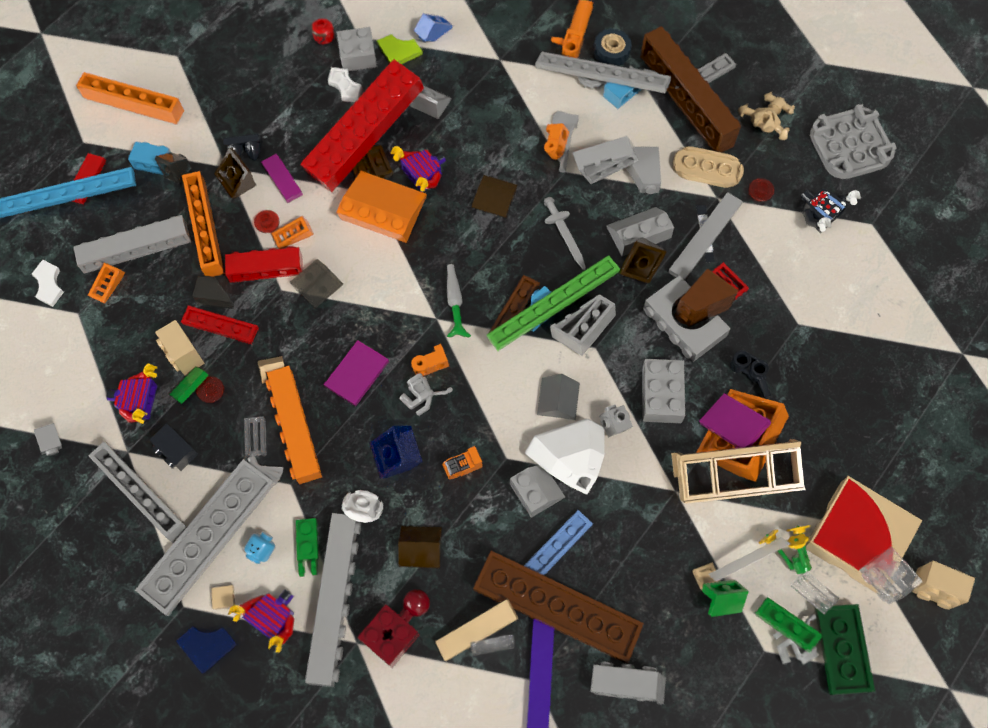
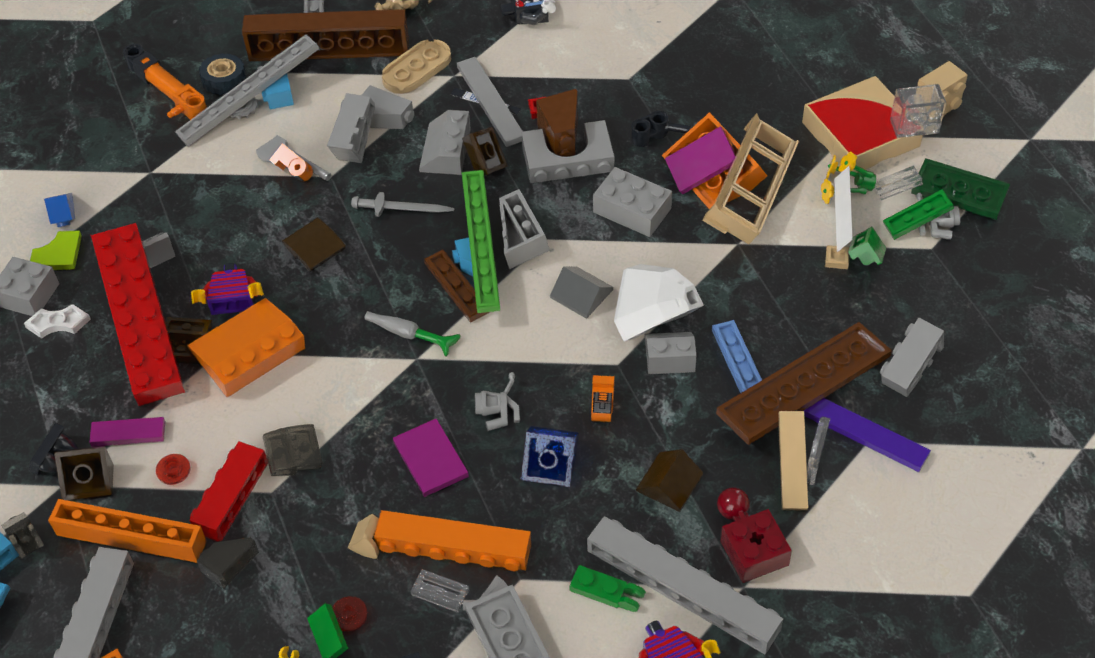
camera: 60 degrees left, 15 degrees down
(178, 348) = (277, 616): tan brick -> none
(219, 324) = (269, 573): red tile -> none
(259, 547) = (581, 634): dark azure head -> none
(296, 224) = (212, 431): orange slope -> none
(362, 506) = (595, 510): white tile -> none
(431, 362) = (466, 386): orange leg -> none
(615, 420) = (639, 249): light grey brick -> none
(761, 189) = (473, 39): clear red piece -> none

